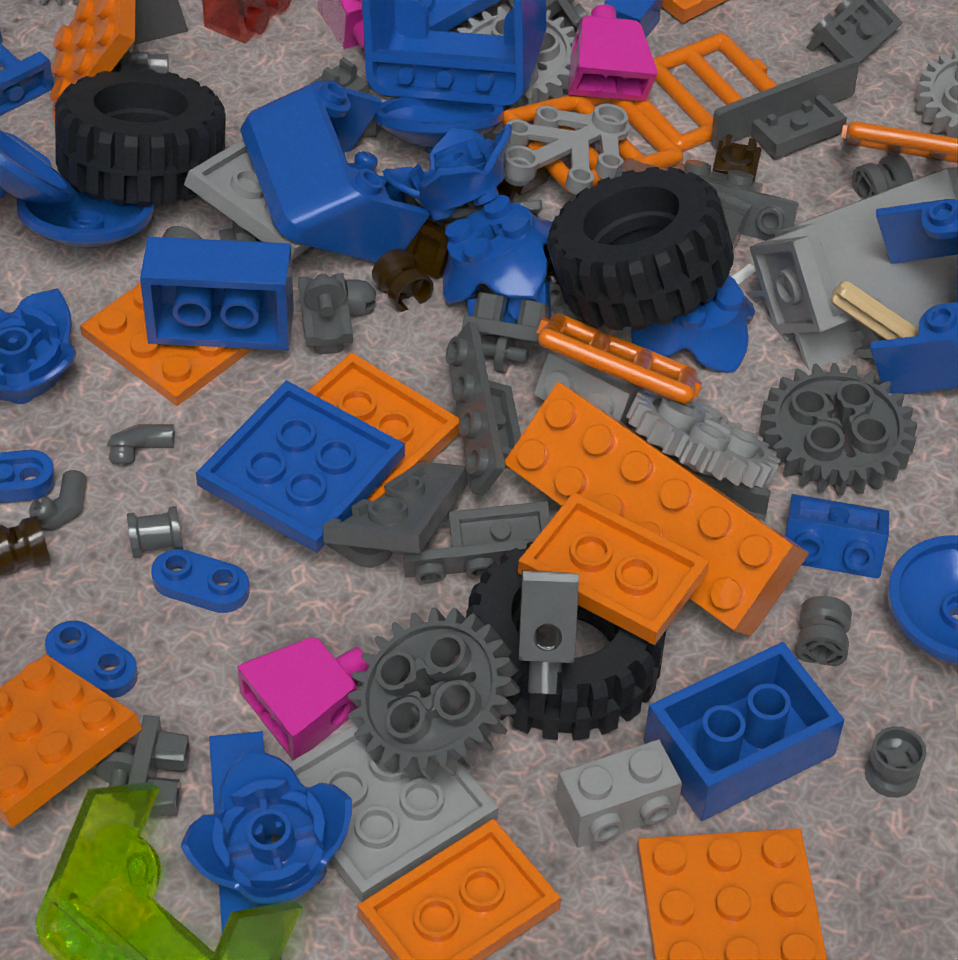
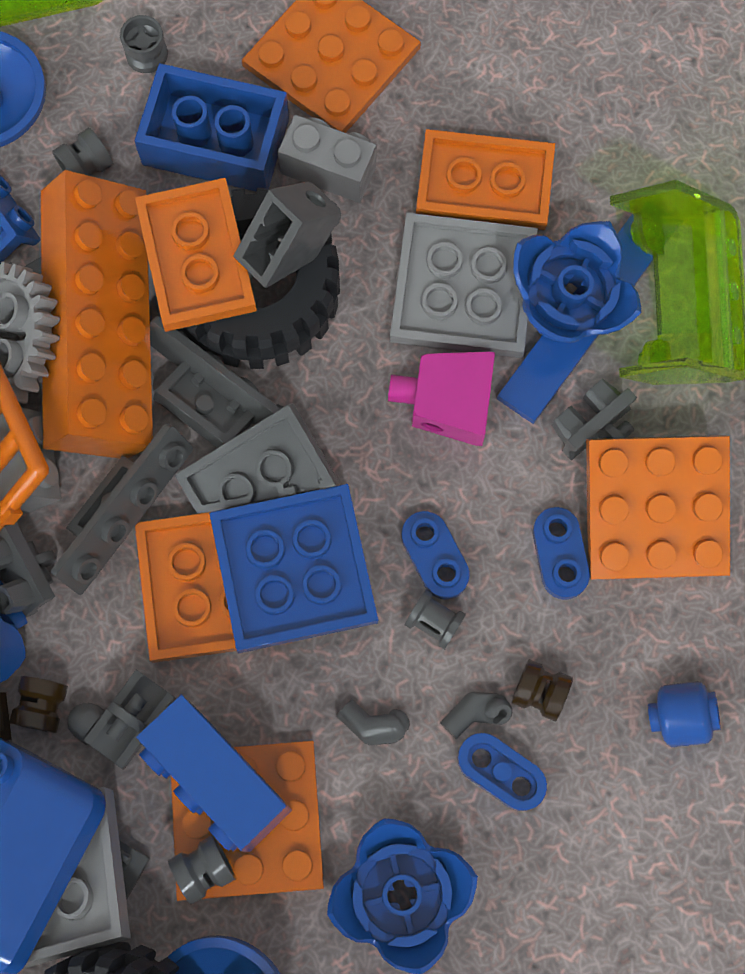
camera: 135 degrees left, 25 degrees up
(433, 694) = (409, 259): dark grey gear -> none

